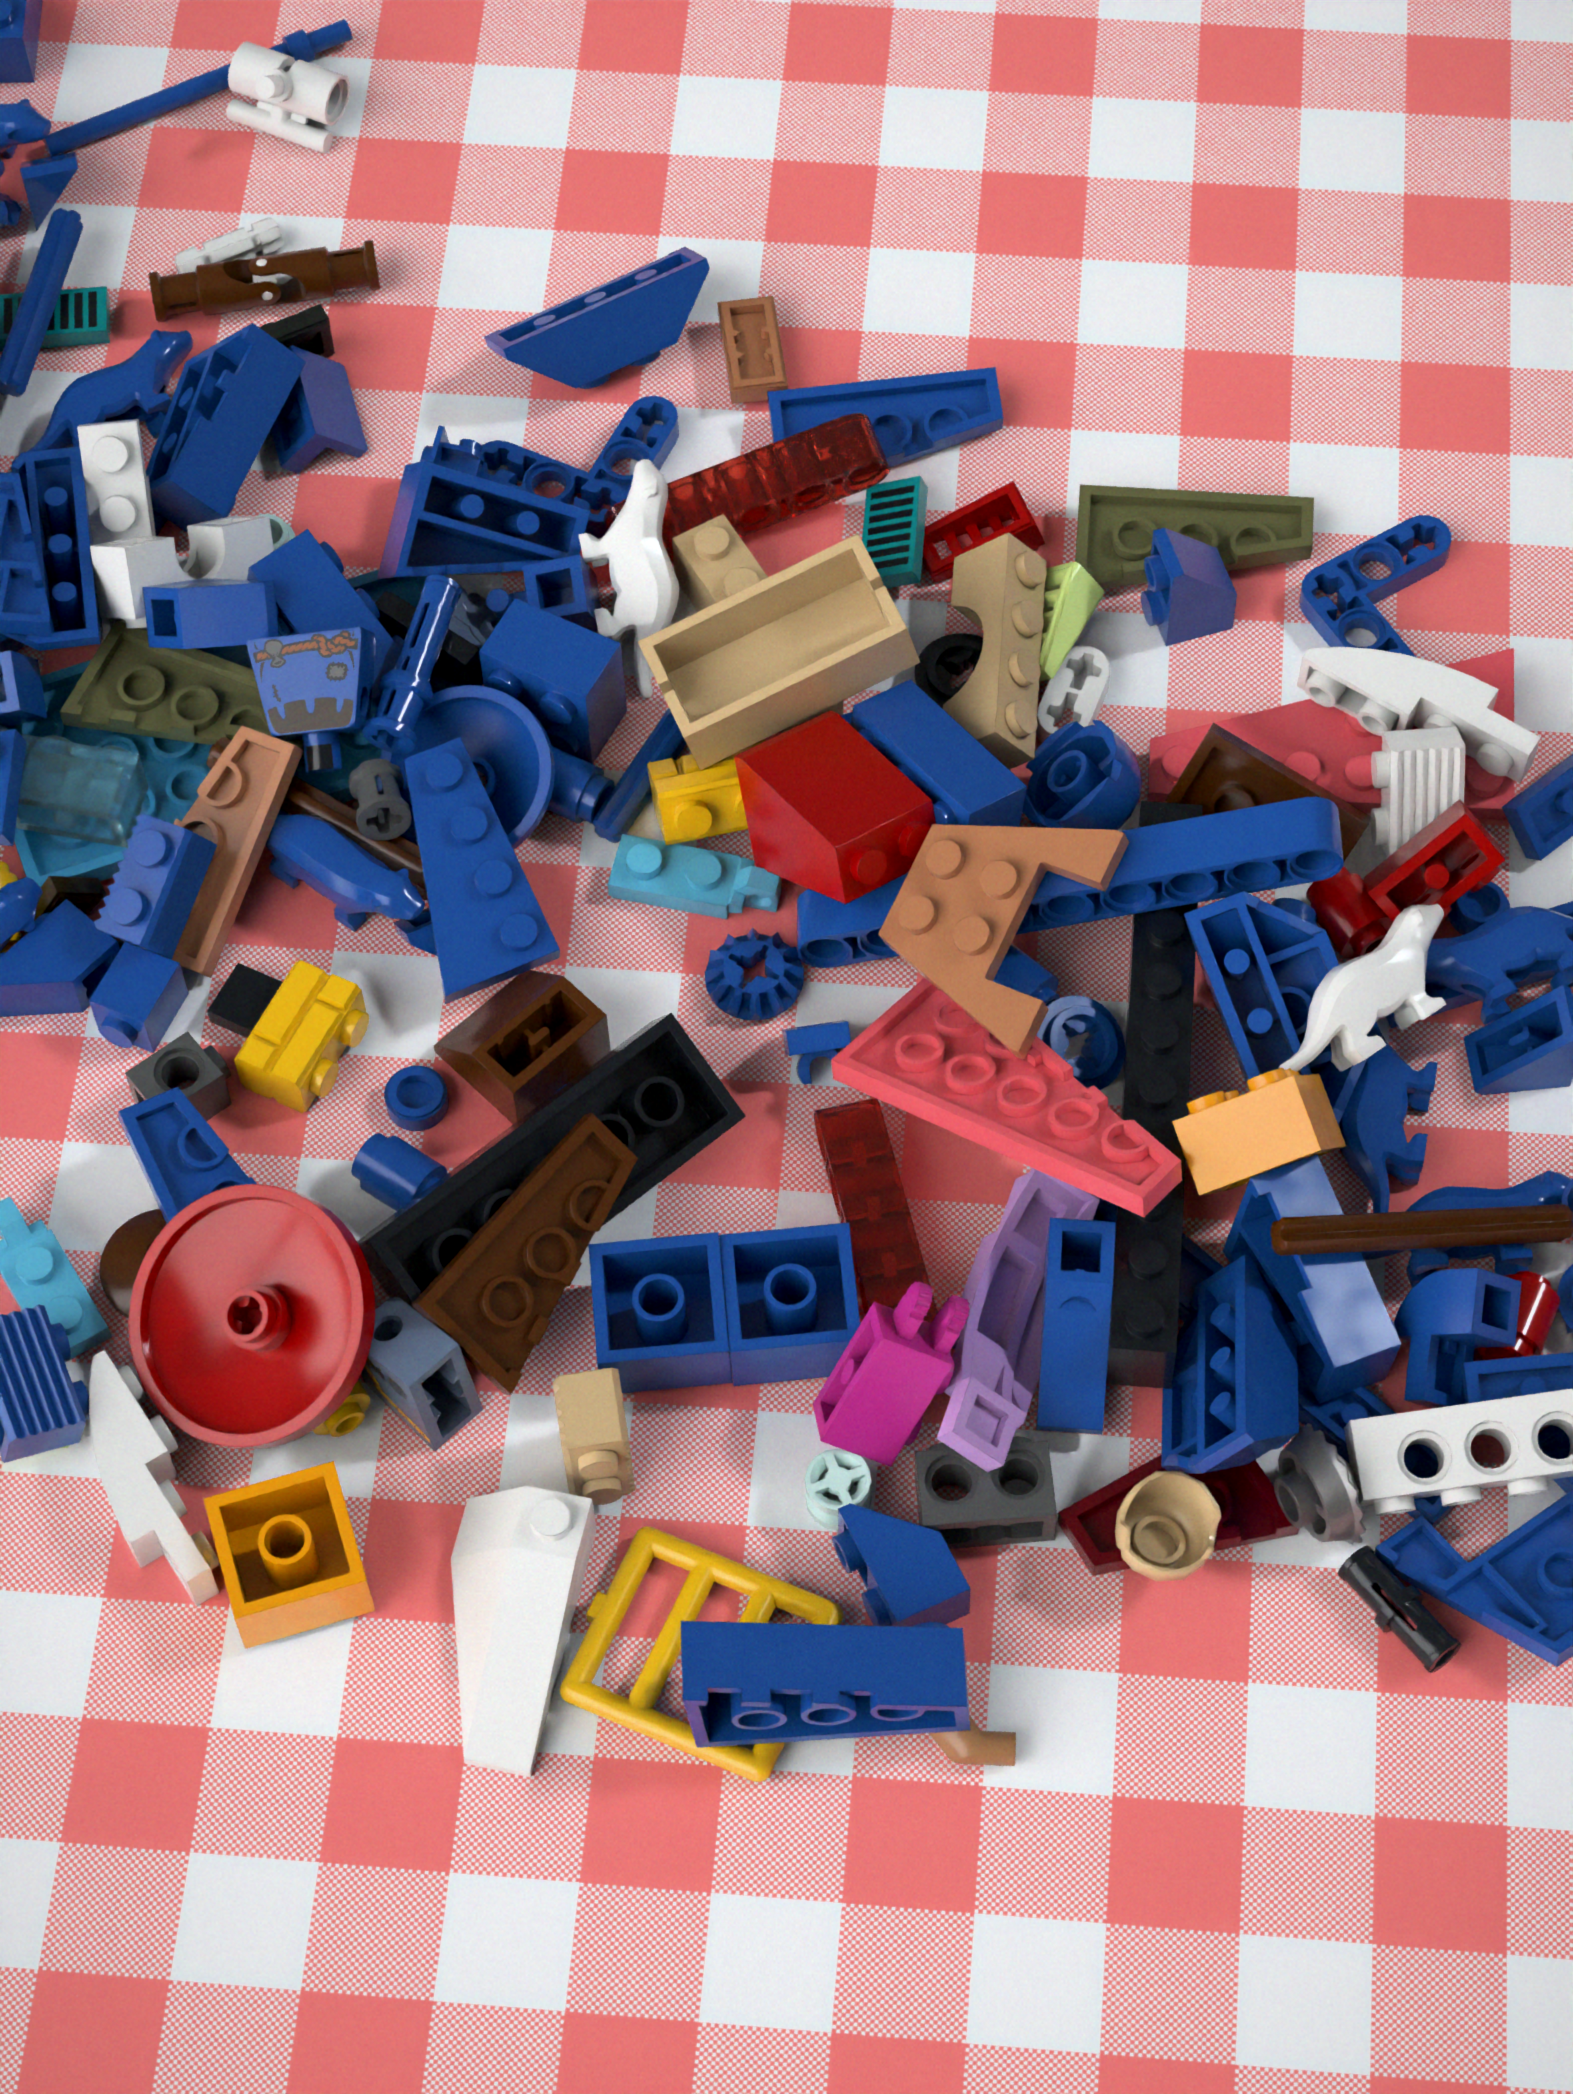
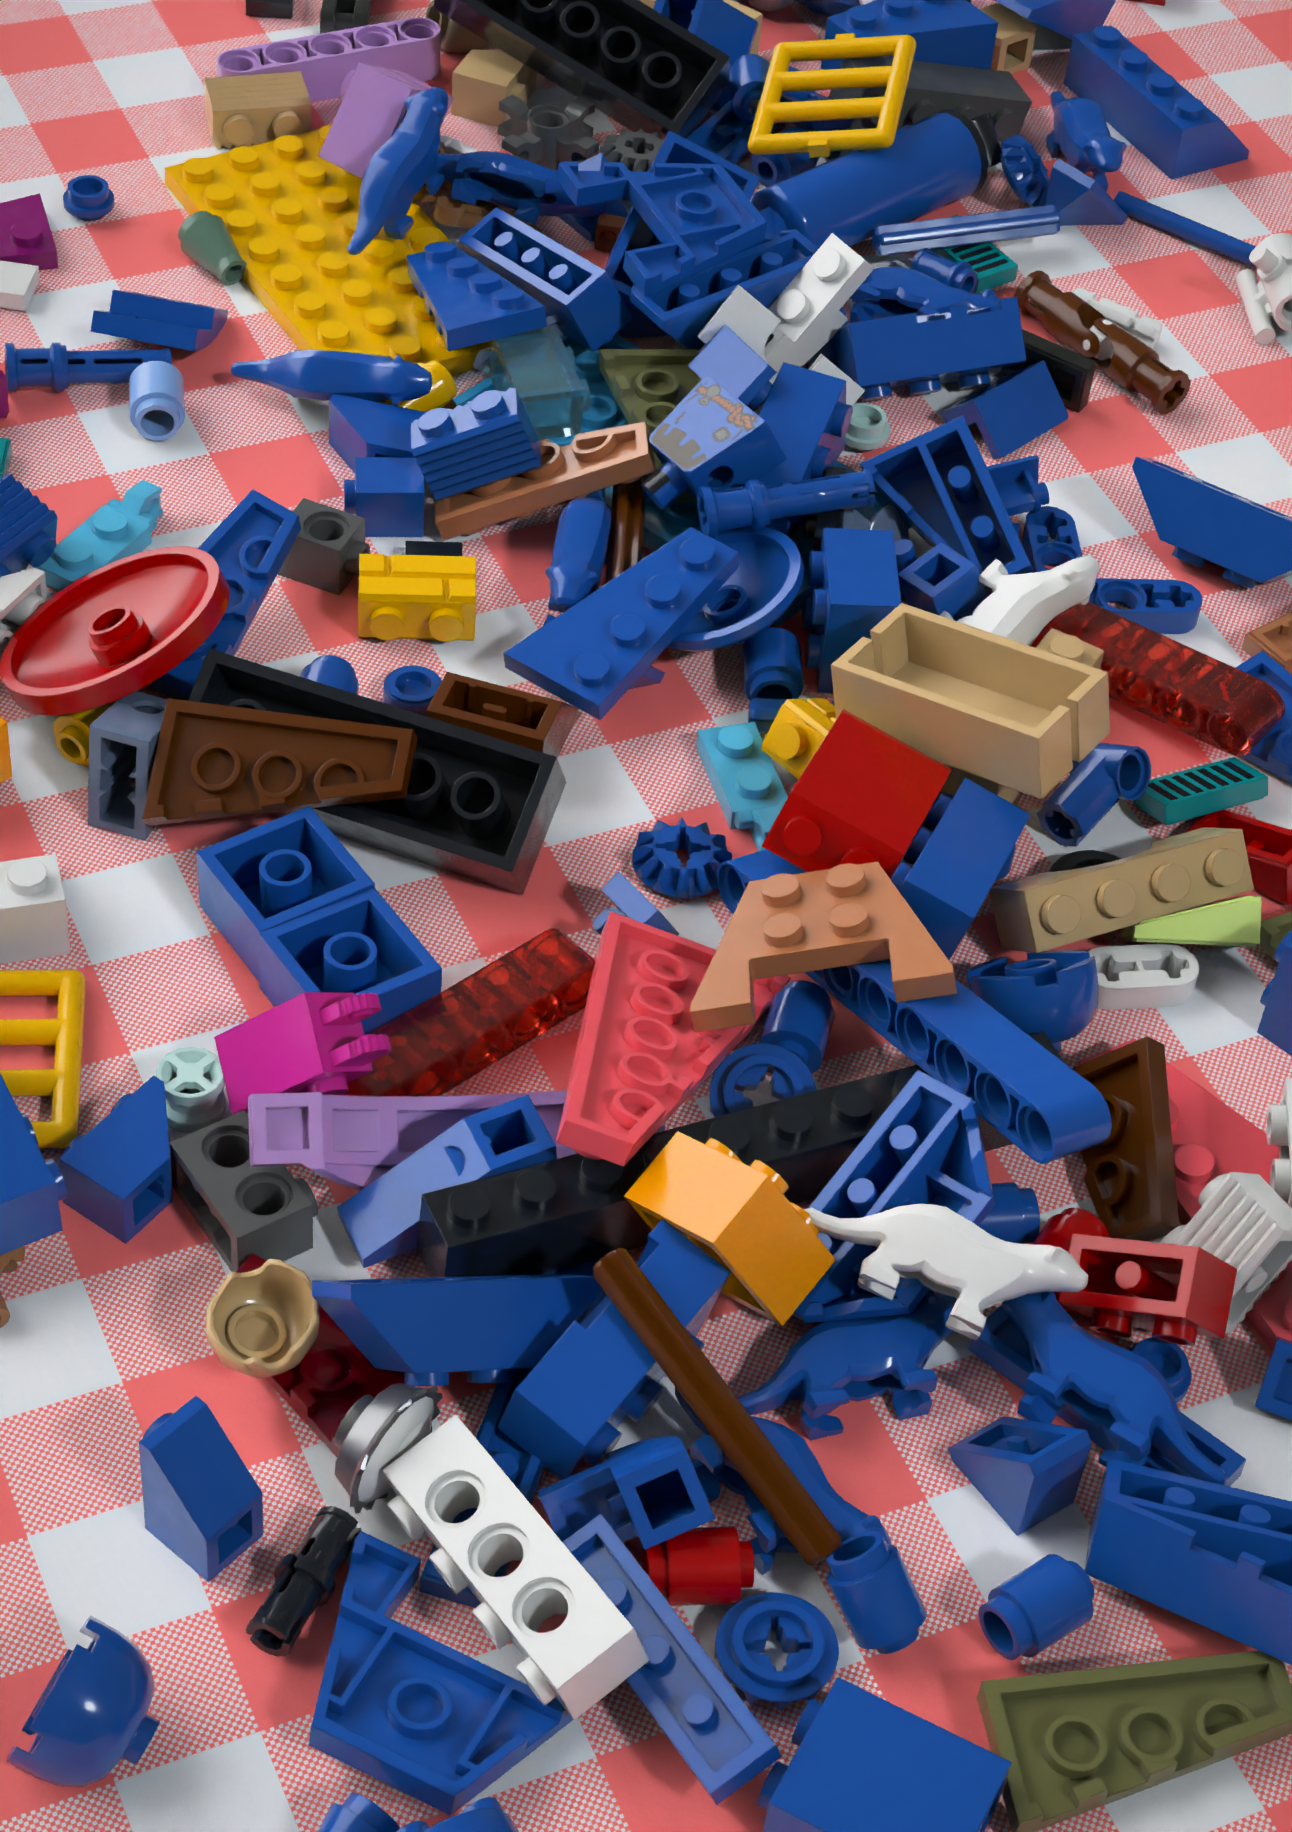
camera: 55 degrees right, 15 degrees down
(79, 355) = (950, 273): none -> blue pin
(395, 809) = (638, 538): dark grey bush -> none
(594, 1435) = (133, 885): tan brick -> none
(1299, 1651) = (198, 1490): none -> blue slope
(1463, 1816) = (90, 1711): none -> blue cylinder

